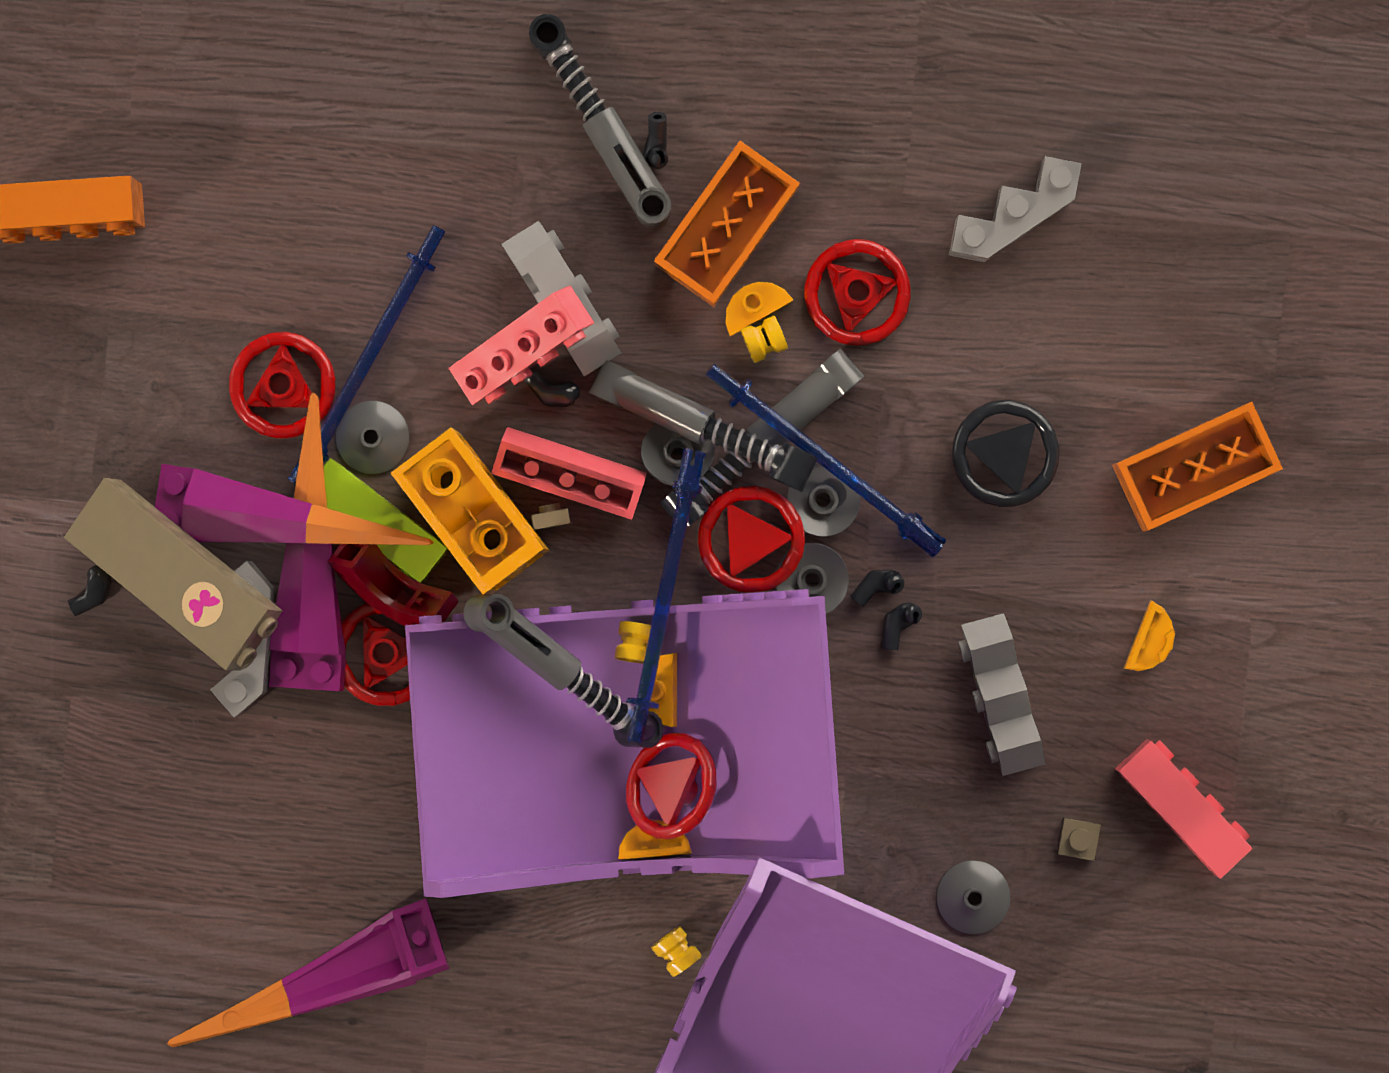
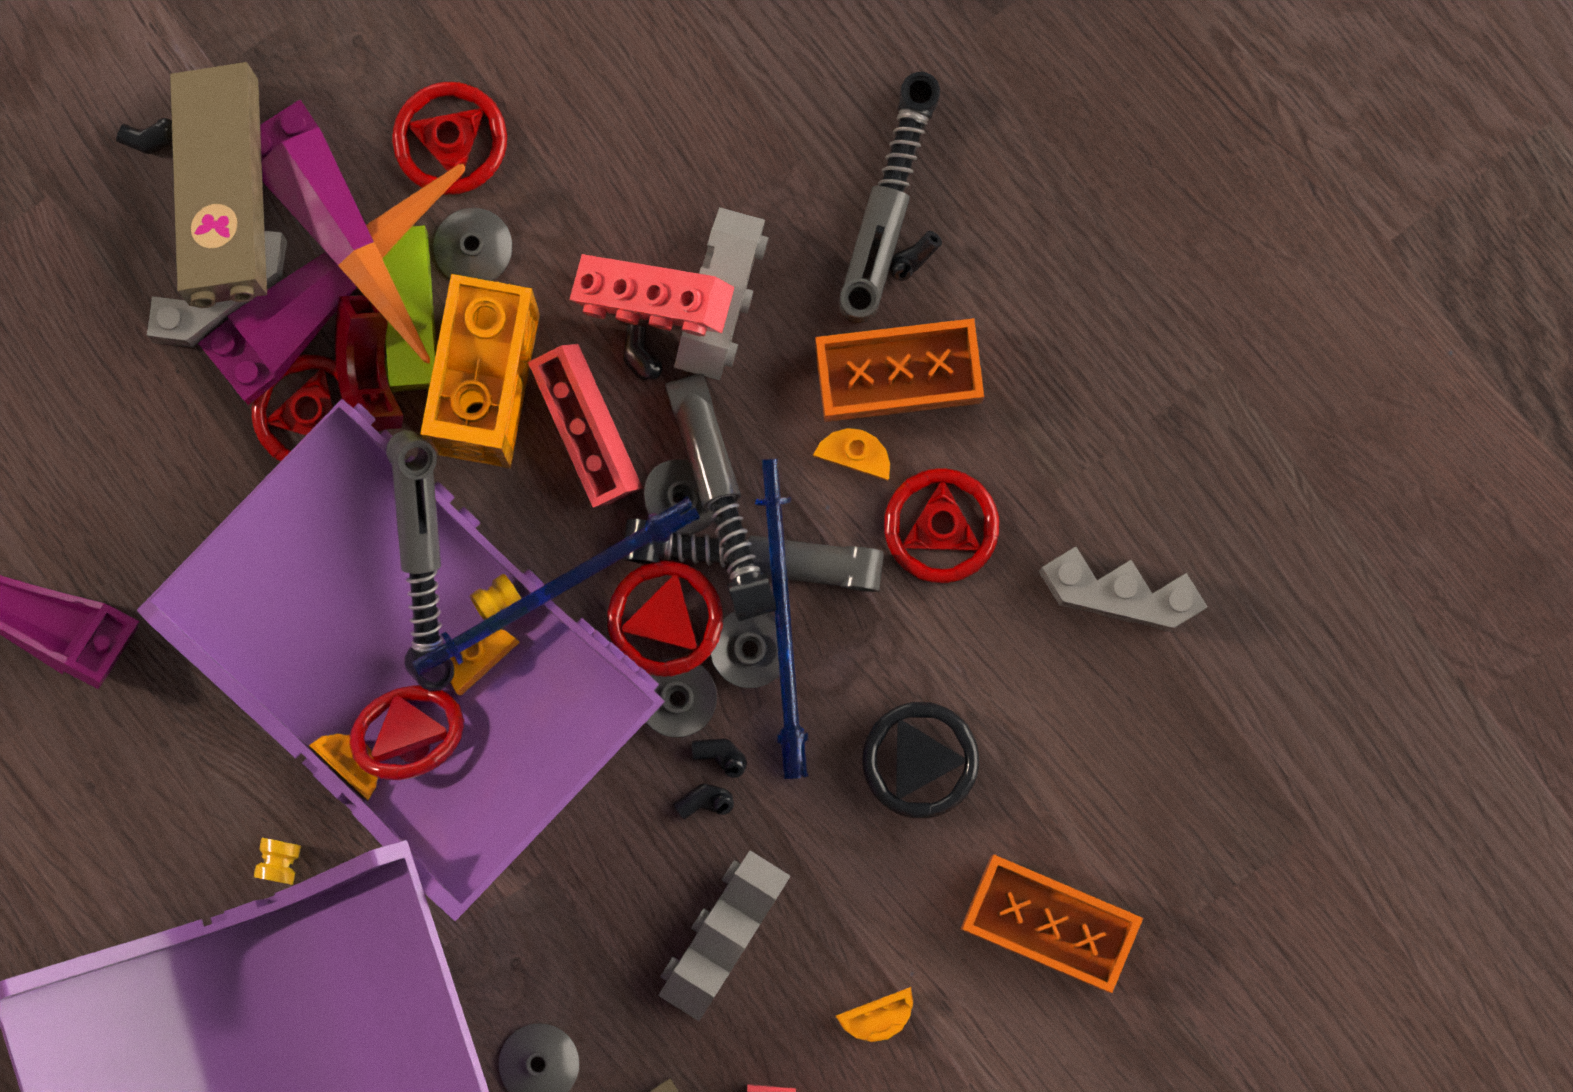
camera: 45 degrees right, 5 degrees down
(419, 264) = (643, 158): clear blue bar -> none
(551, 516) = (537, 443): dark tan plate -> none
(756, 342) = (827, 479): yellow wheel -> none

